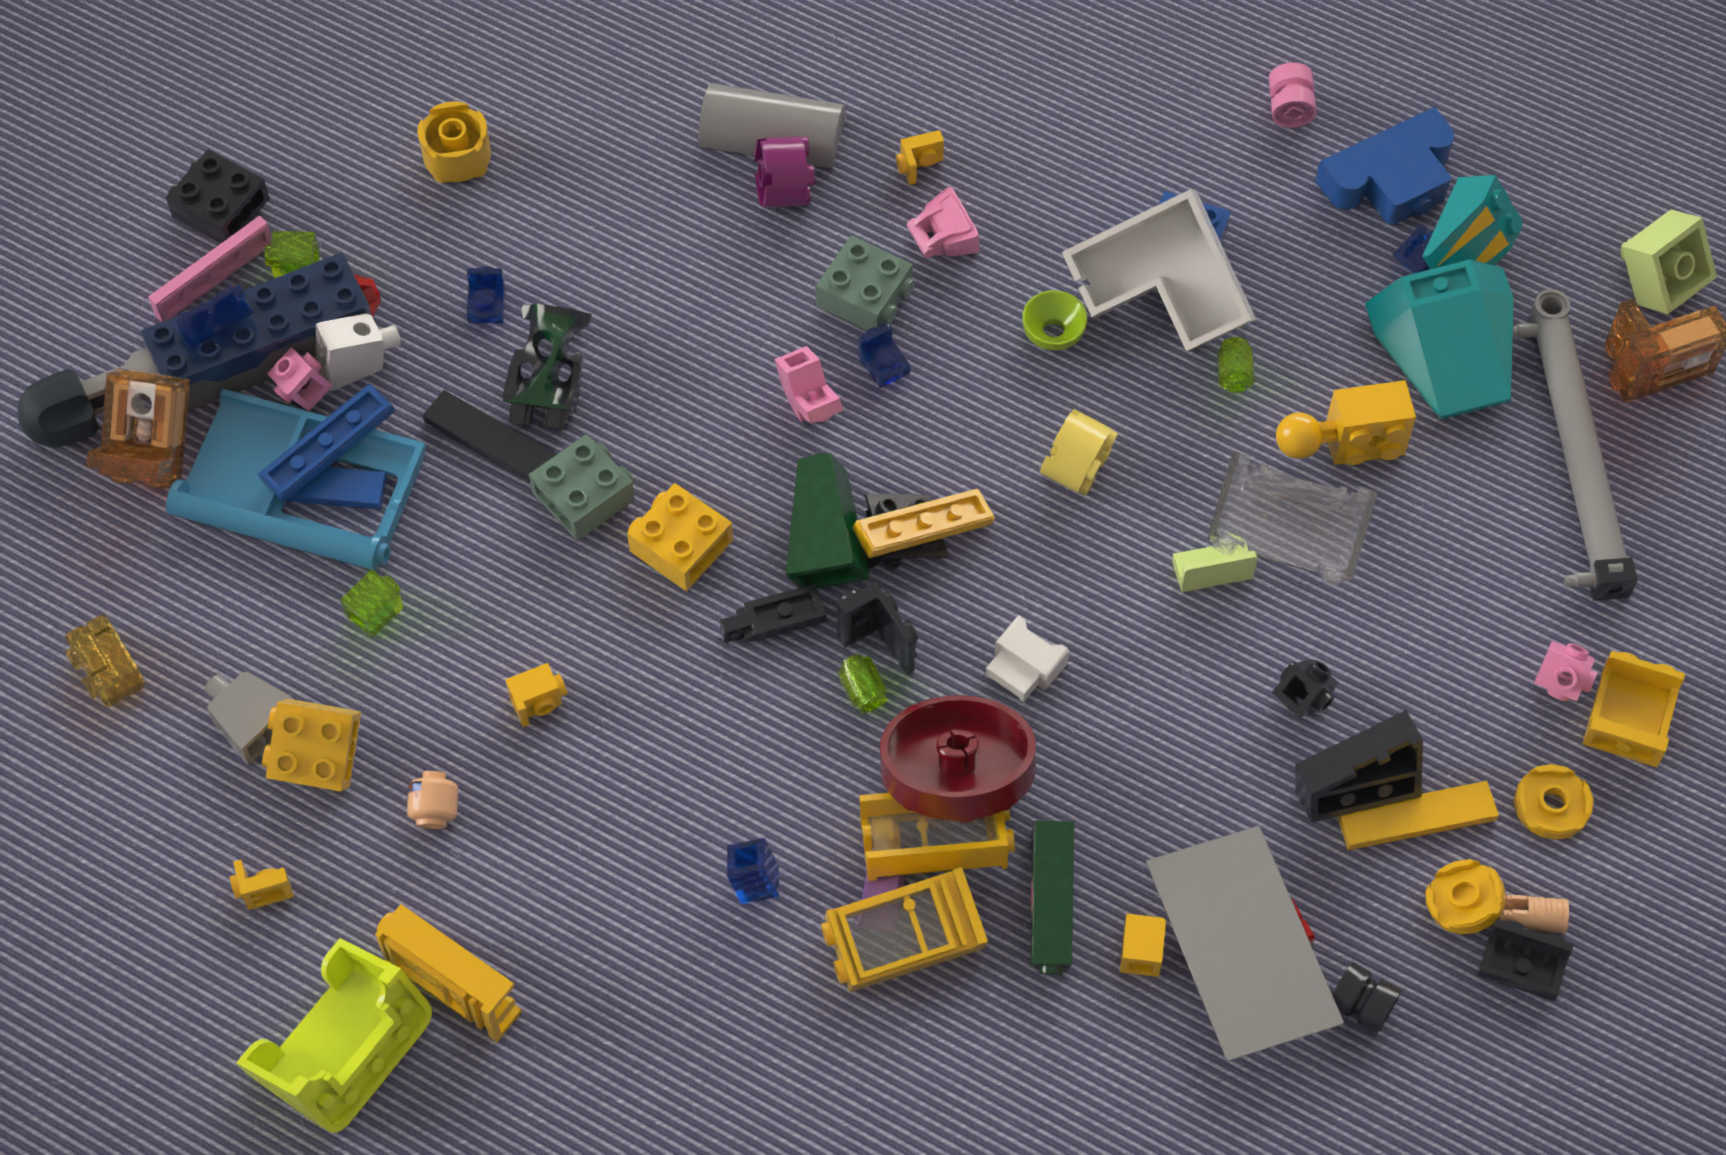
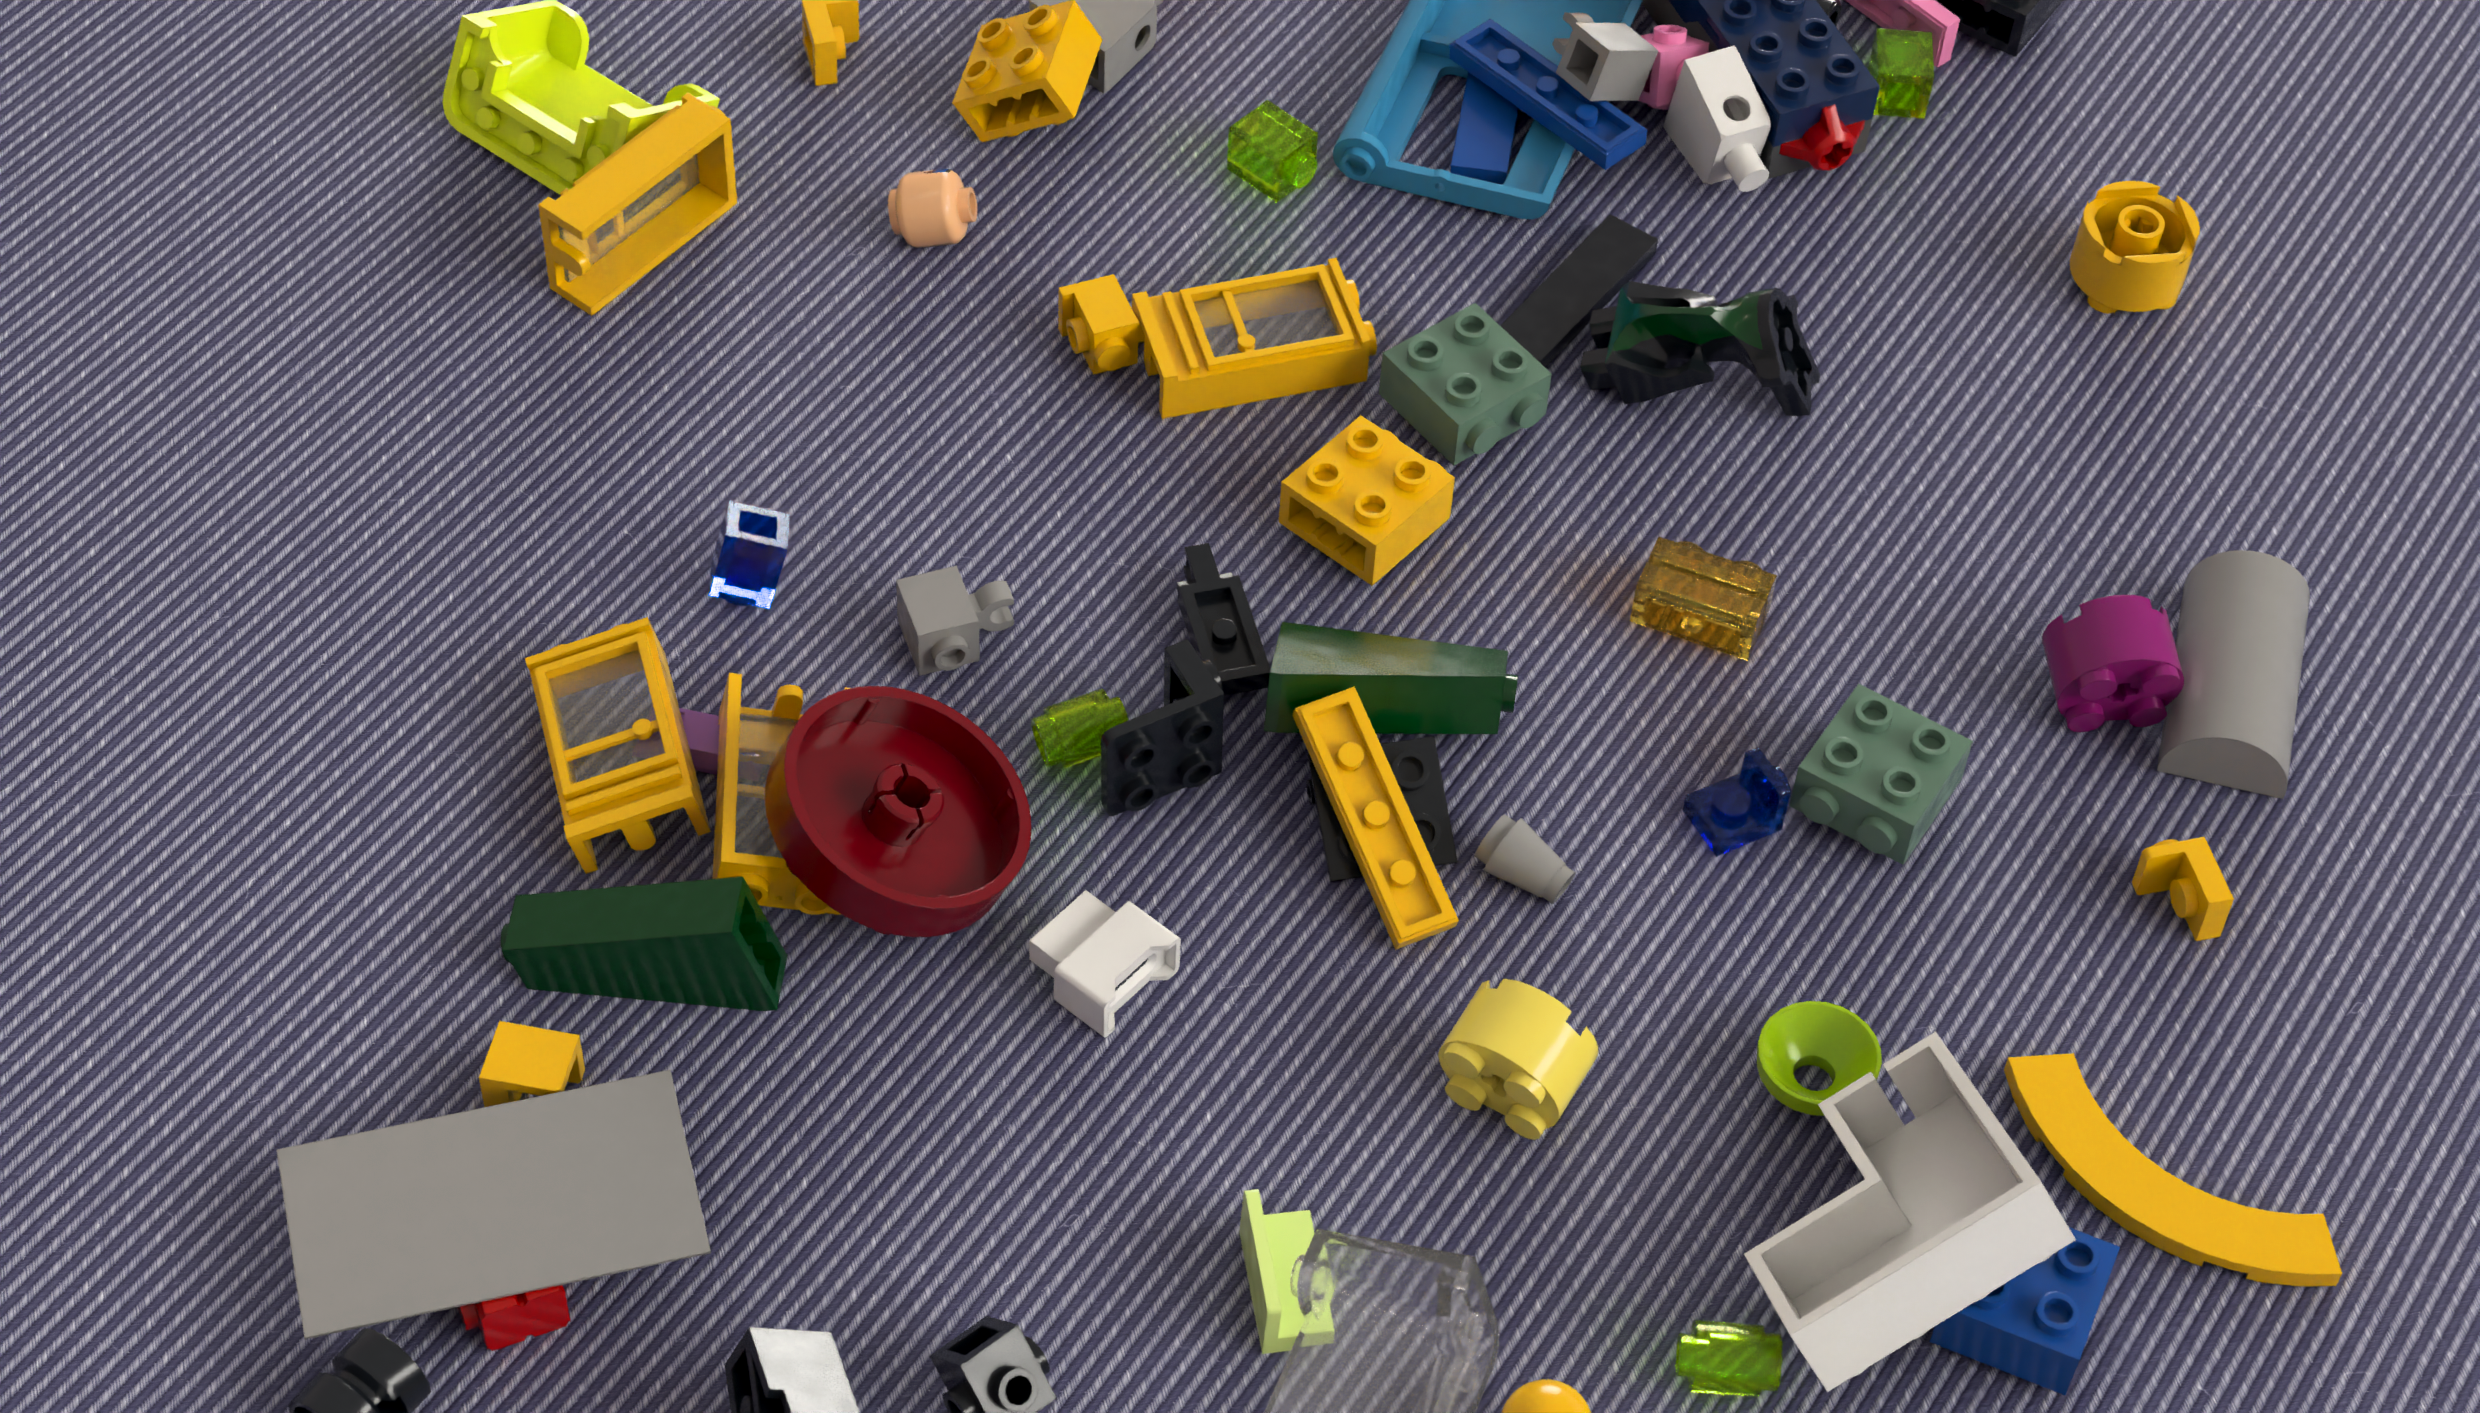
camera: 90 degrees right, 10 degrees down
(315, 401) = (1604, 59): none -> light grey brick
(485, 295) = (1841, 297): clear blue bracket -> none
(540, 604) = (1254, 338): none -> yellow door
(738, 368) = (1703, 597): none -> clear yellow brick
(787, 762) = (945, 621): none -> light grey brick
(806, 386) = (1663, 683): bright pink brick -> none
(932, 458) = (1523, 859): none -> light grey cone
(950, 224) = (2028, 916): bright pink piece -> none
(1106, 193) = (2154, 1202): none -> yellow tile

